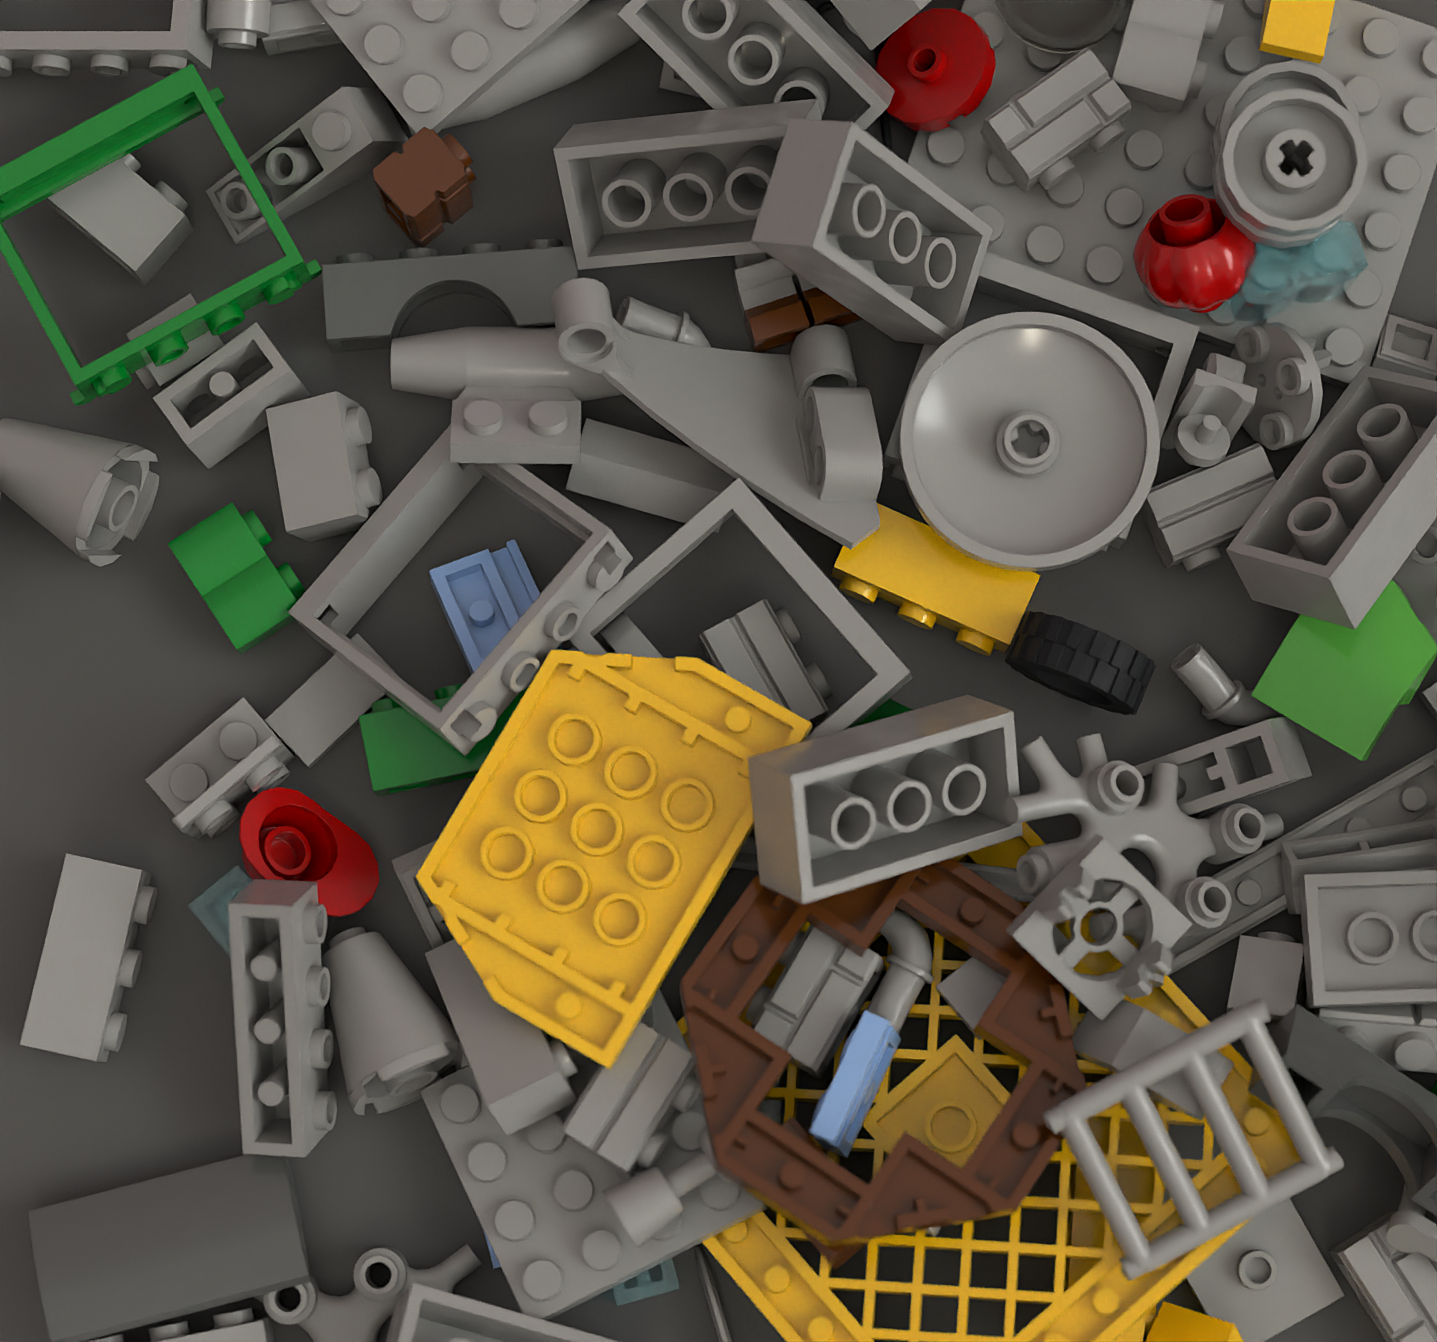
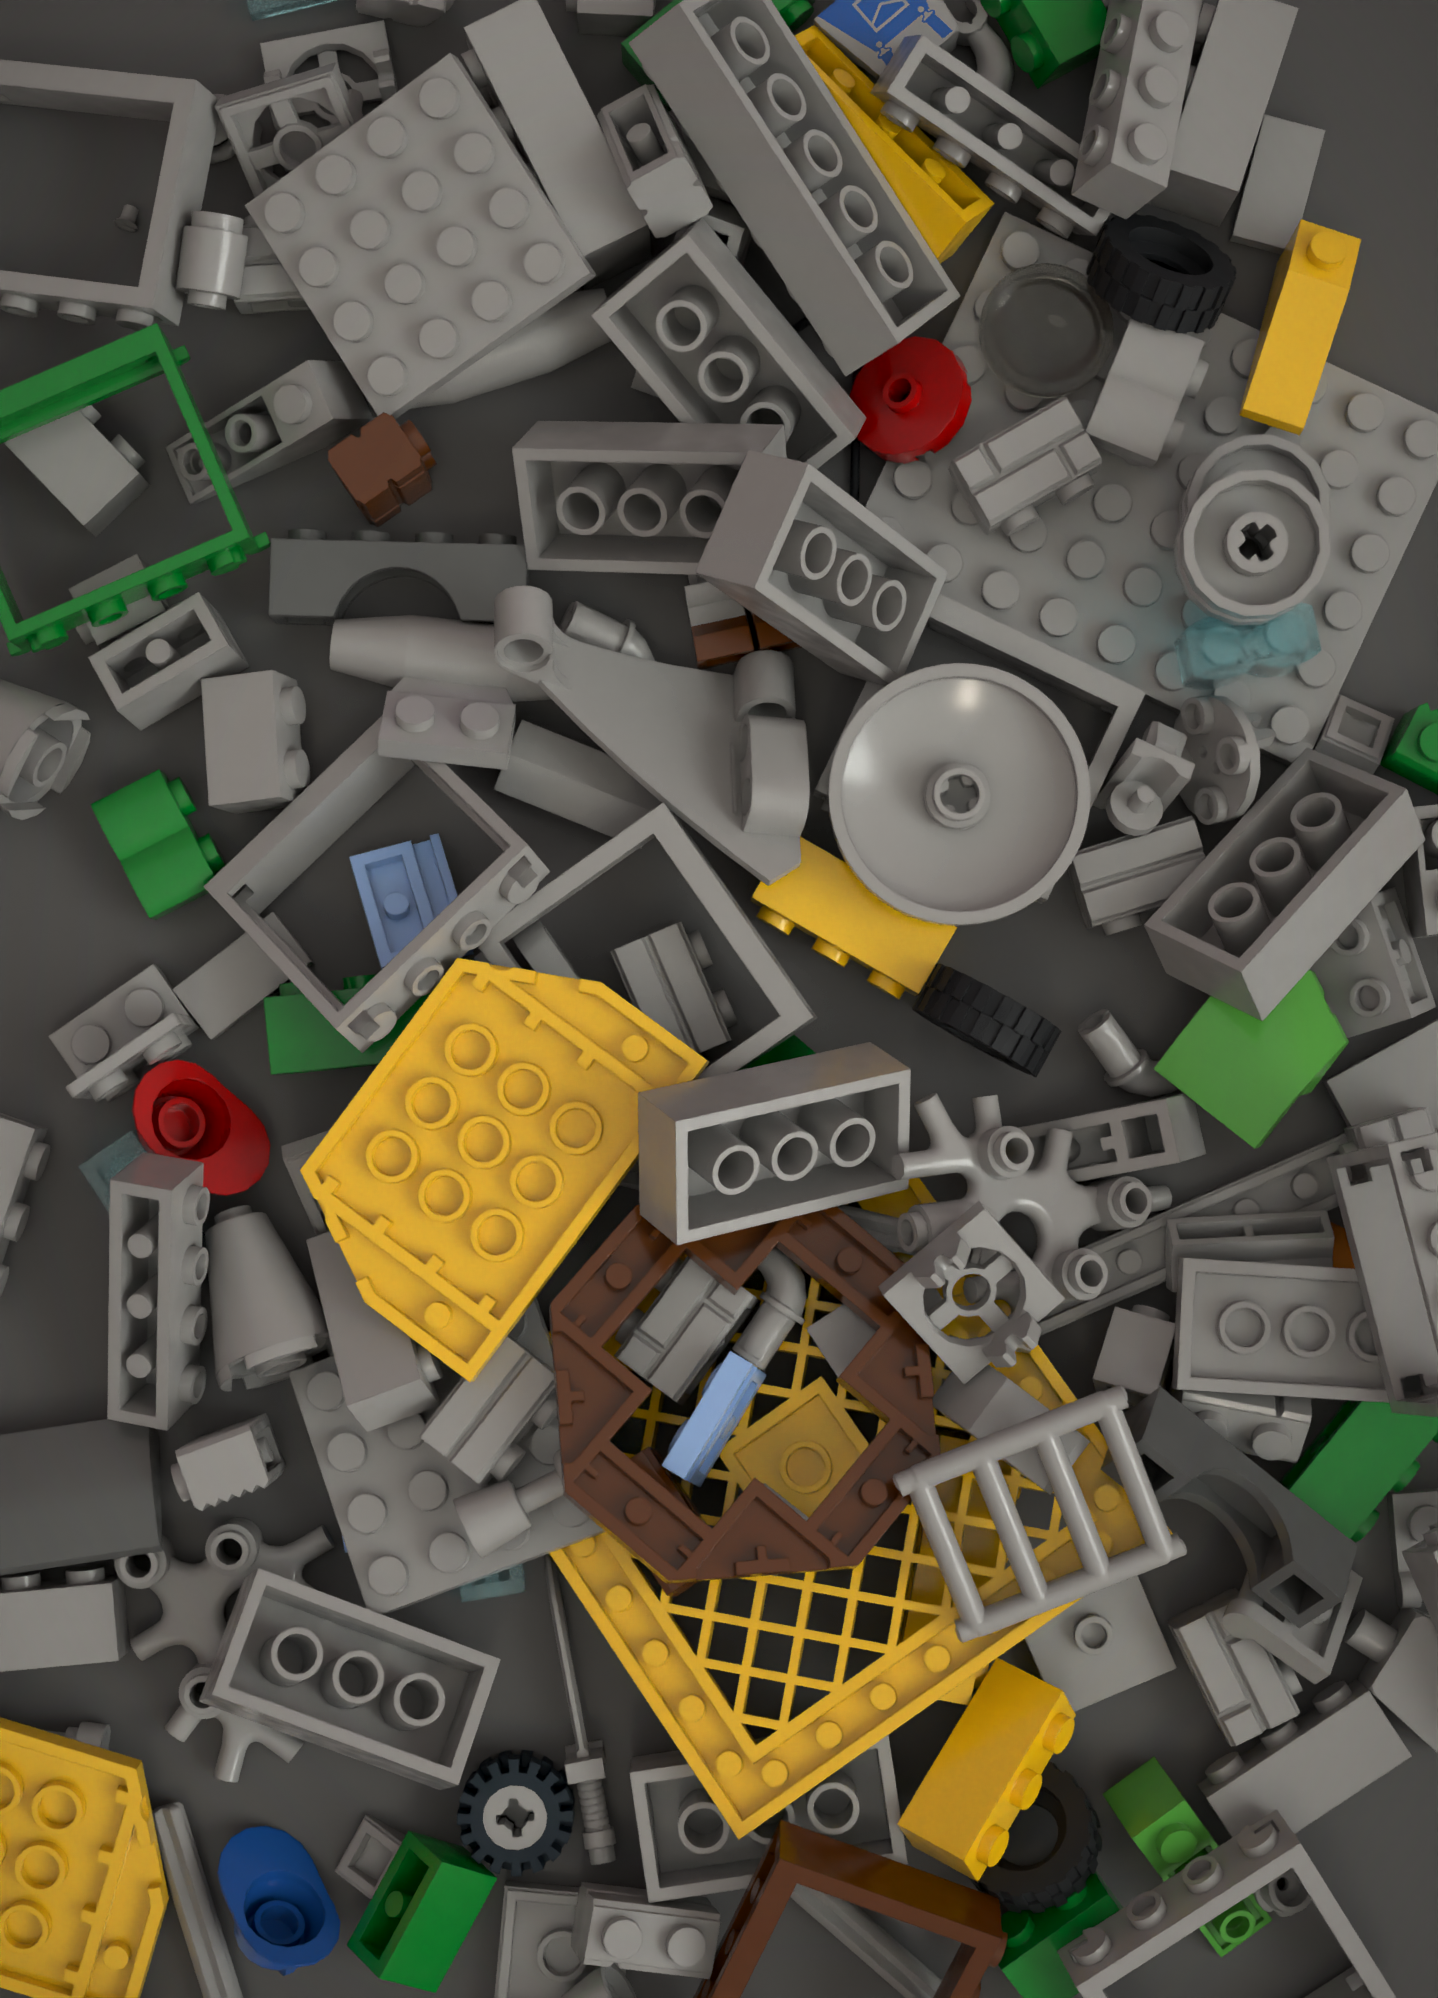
camera: 10 degrees right, 5 degrees up
(368, 1185) = (228, 1463): none -> light grey brick
(1192, 254) = (1145, 620): red plant -> none

